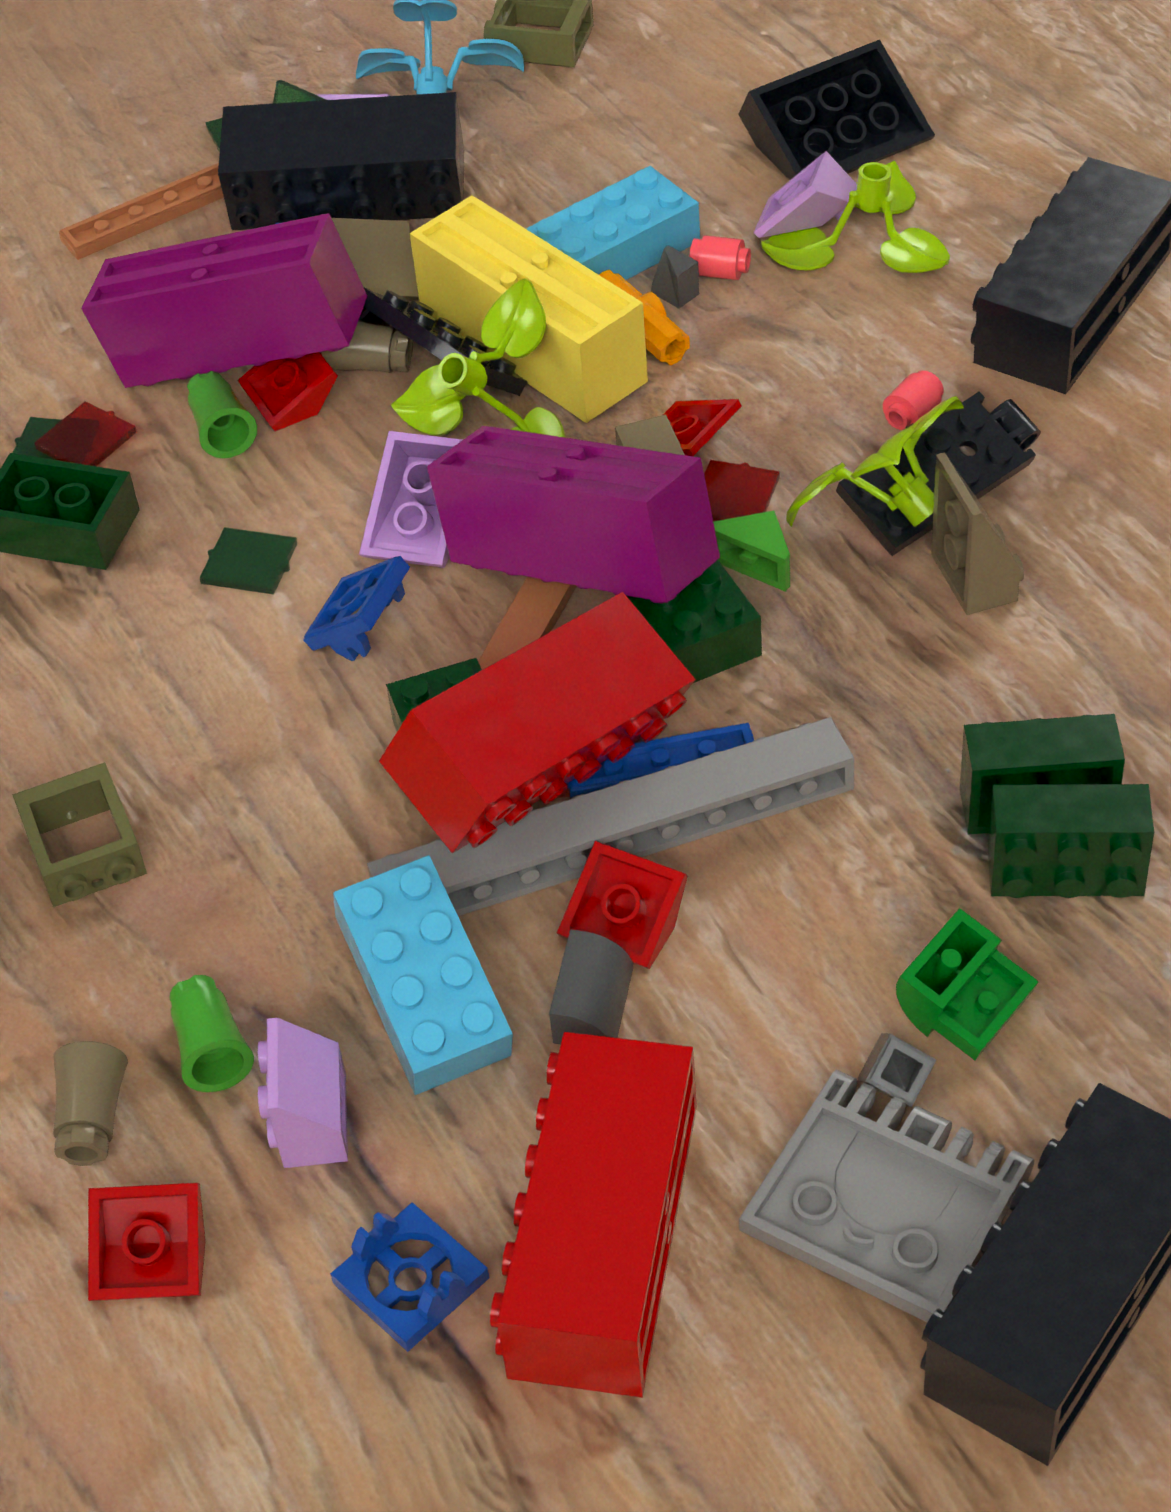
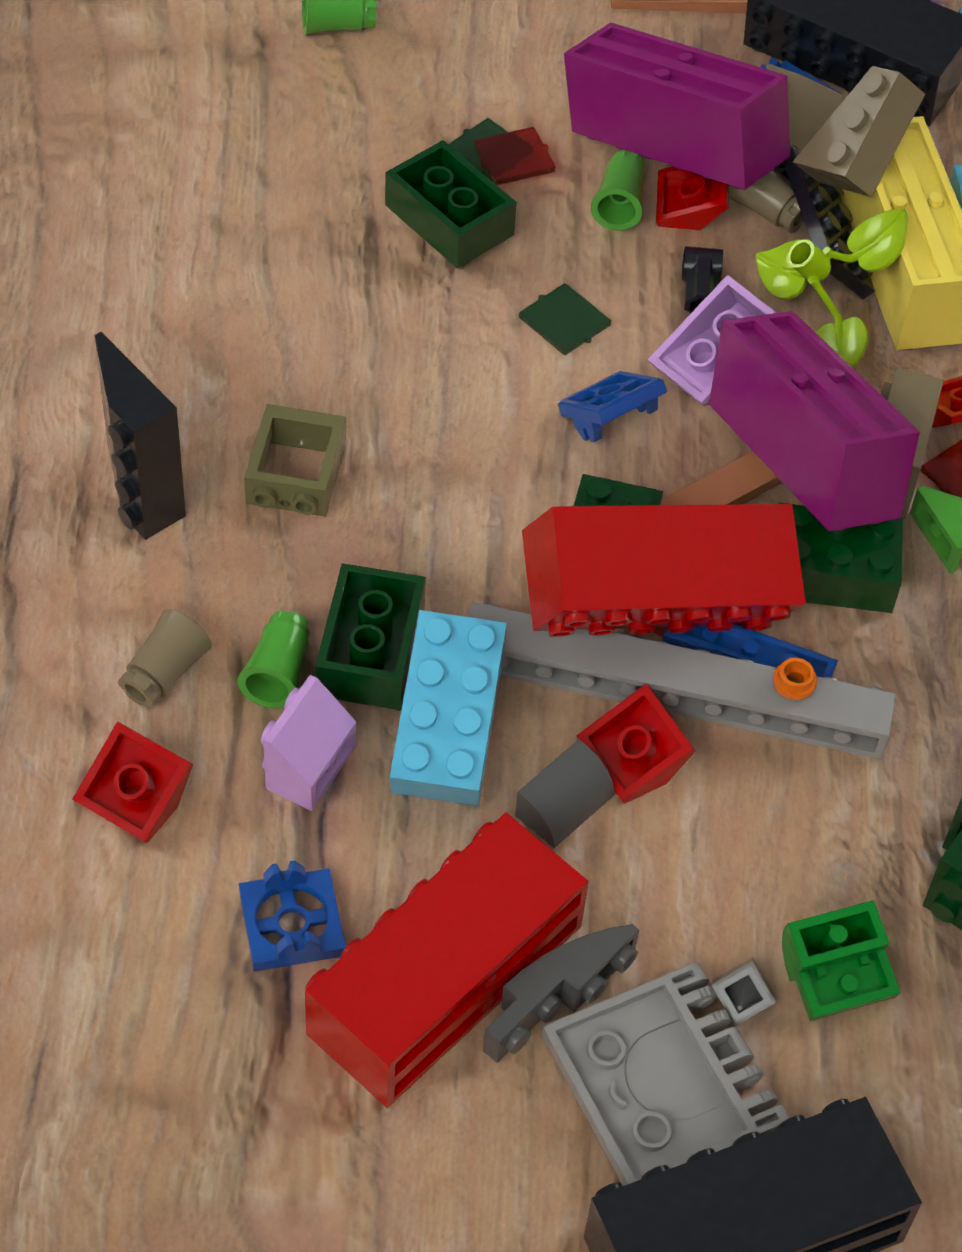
camera: 25 degrees right, 5 degrees up
(289, 952) = (370, 635): none -> dark green brick
(355, 449) = (701, 274): none -> black piece
(433, 233) = (862, 133): none -> dark tan wedge
(719, 1168) = (564, 975): none -> dark grey slope
(733, 754) = (798, 670): none -> orange plate

